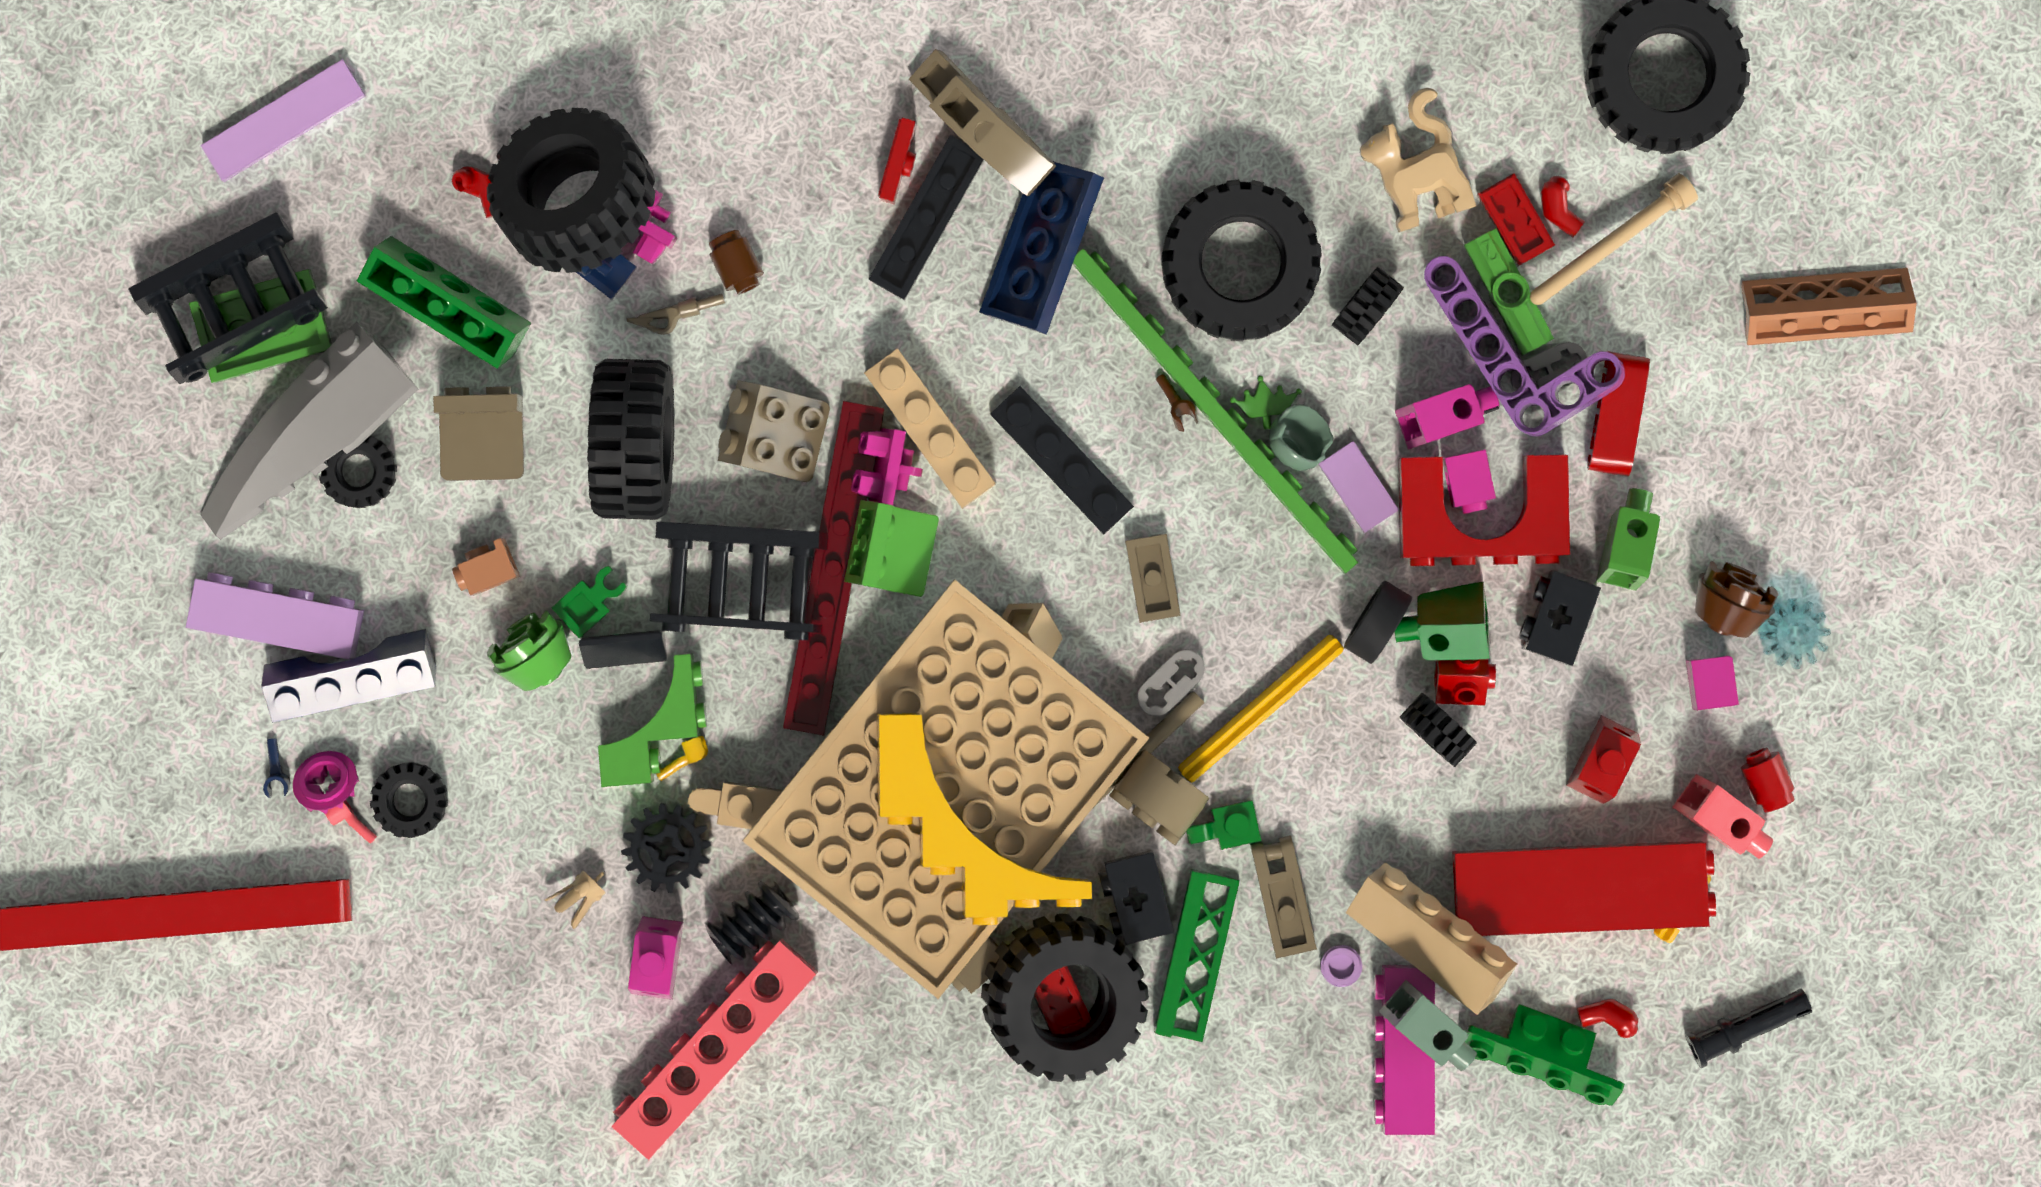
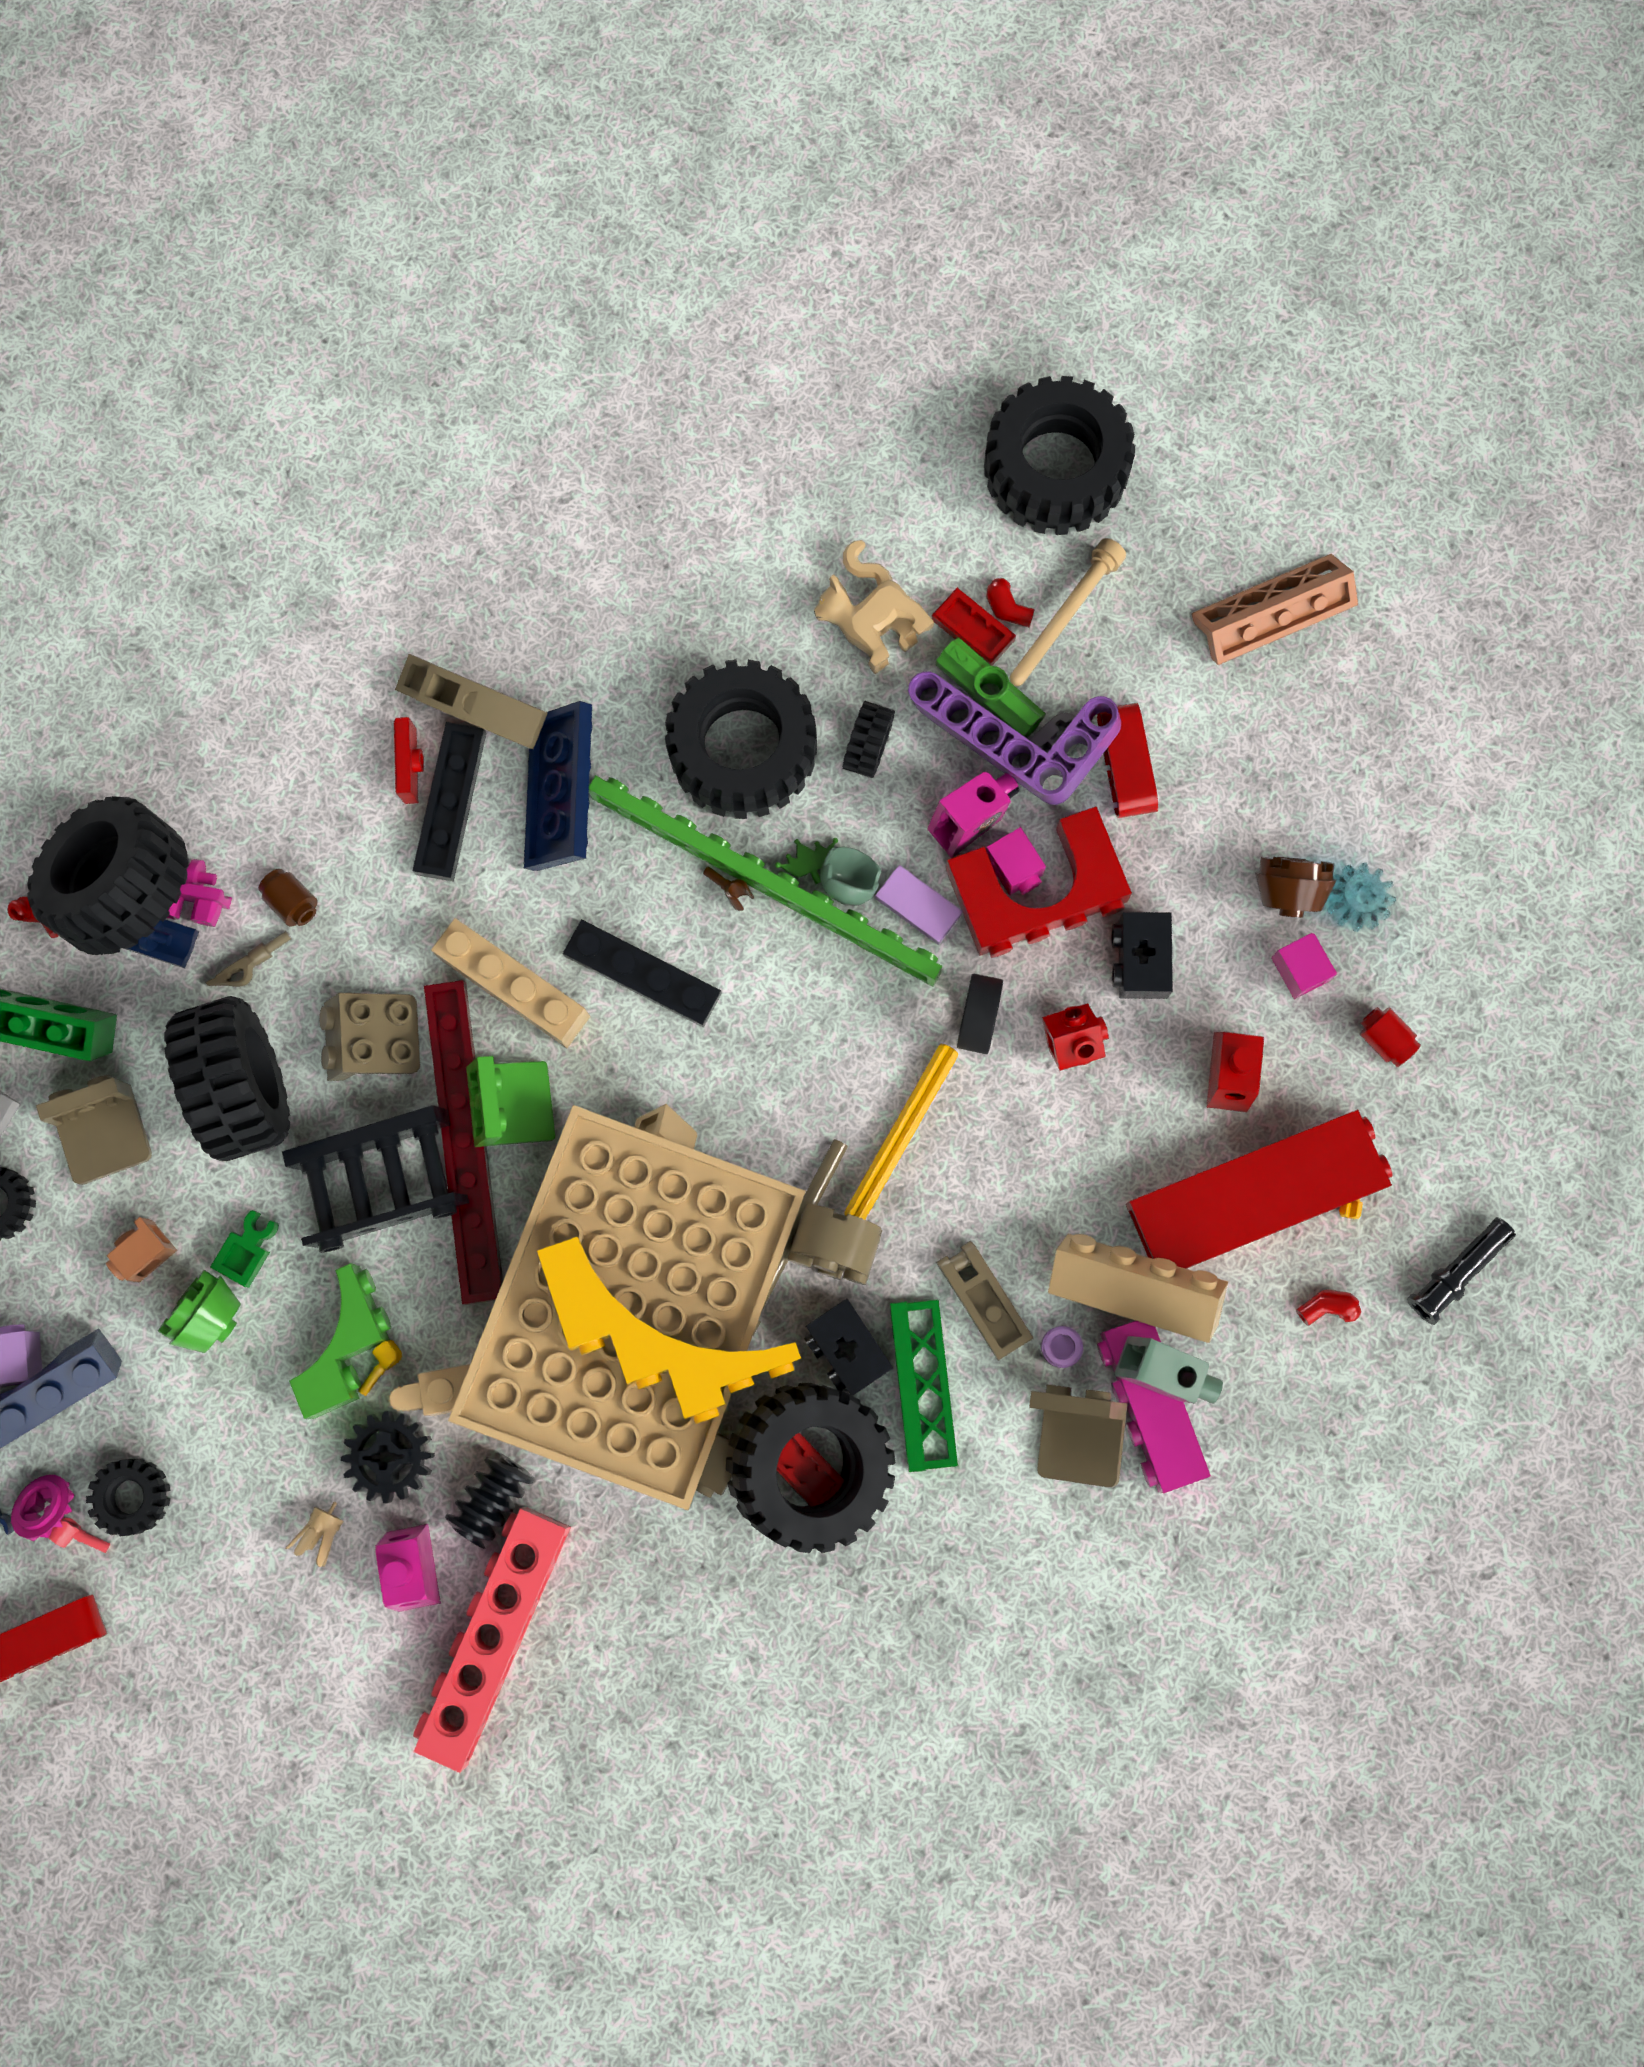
camera: 10 degrees left, 10 degrees down
(623, 649) = (290, 1282): black slope -> none
(890, 469) = (476, 1012): dark pink hips -> none
(1152, 578) = (760, 1048): dark tan plate -> none
(1177, 690) = (801, 1134): light grey beam -> none
(1231, 825) = (912, 1251): green plate -> none
(1327, 1055) = (1080, 1436): none -> dark tan bracket
(1438, 729) = (1071, 1092): black tyre -> none
(1449, 624) = (1045, 993): green torso -> none
(1548, 1051) = (1287, 1360): green bracket -> none
(1625, 558) = (1182, 867): bright green torso -> none
(1723, 817) = (1362, 1081): coral torso -> none

